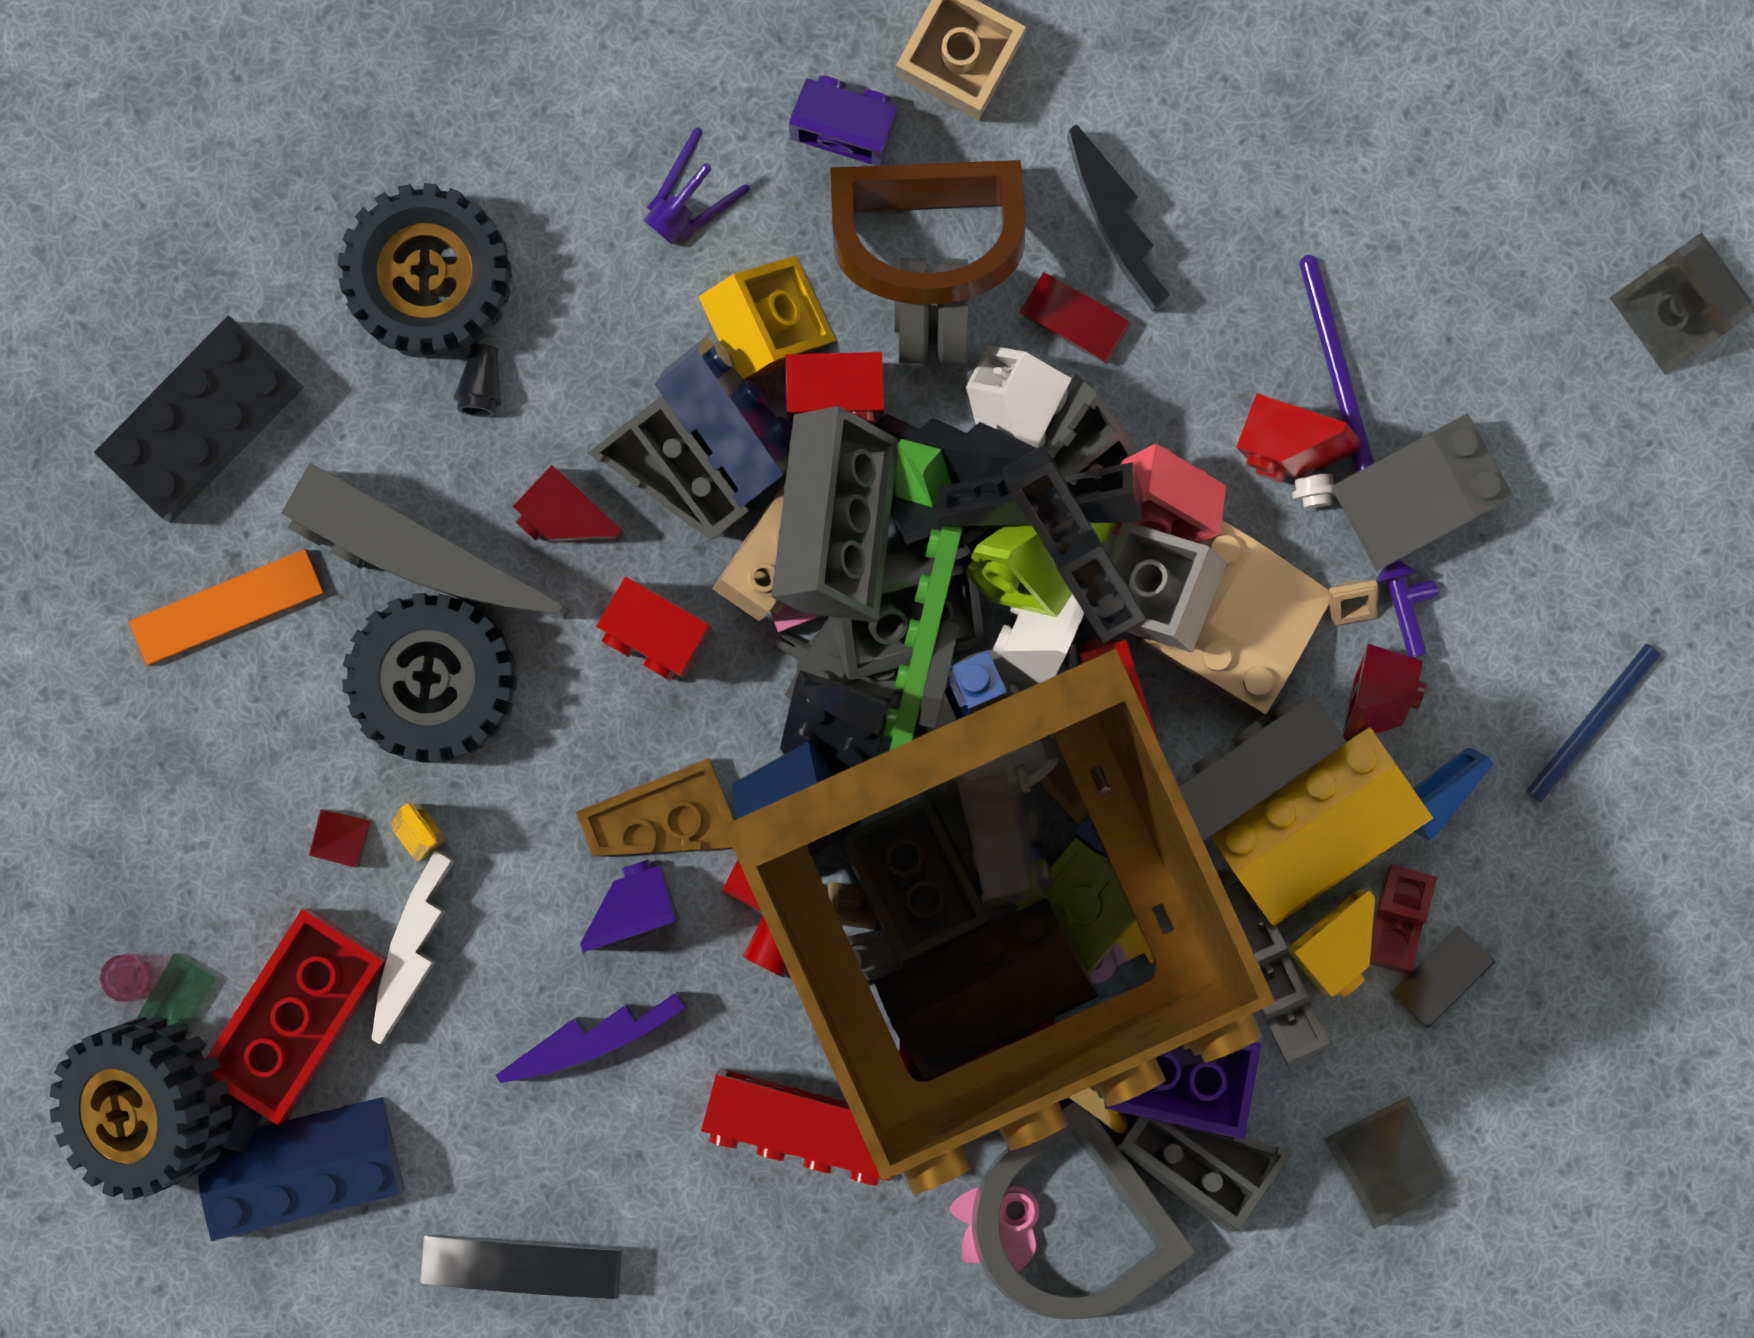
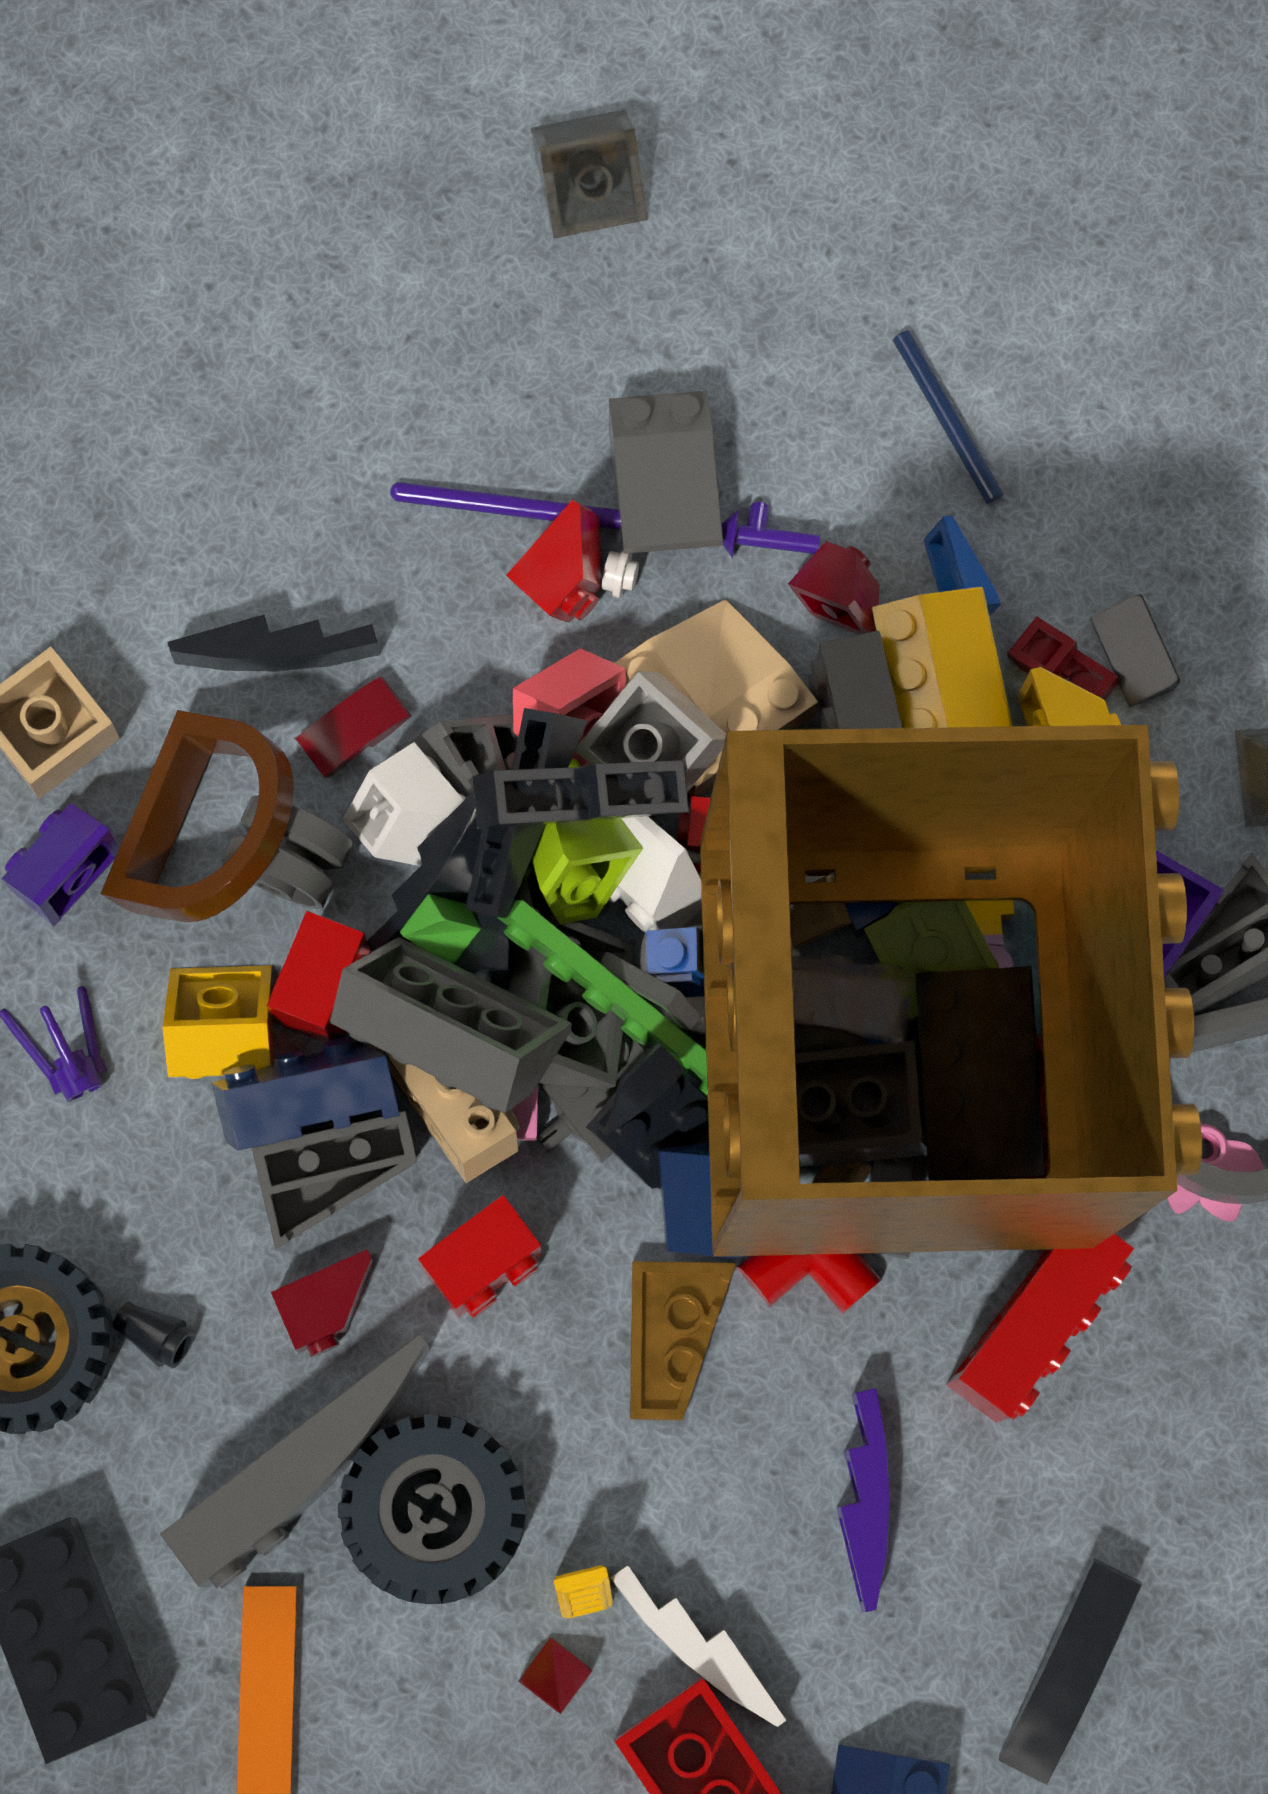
camera: 70 degrees left, 10 degrees down
(632, 906) = (752, 1399): dark purple slope -> none
(1351, 589) = (735, 567): tan slope -> none

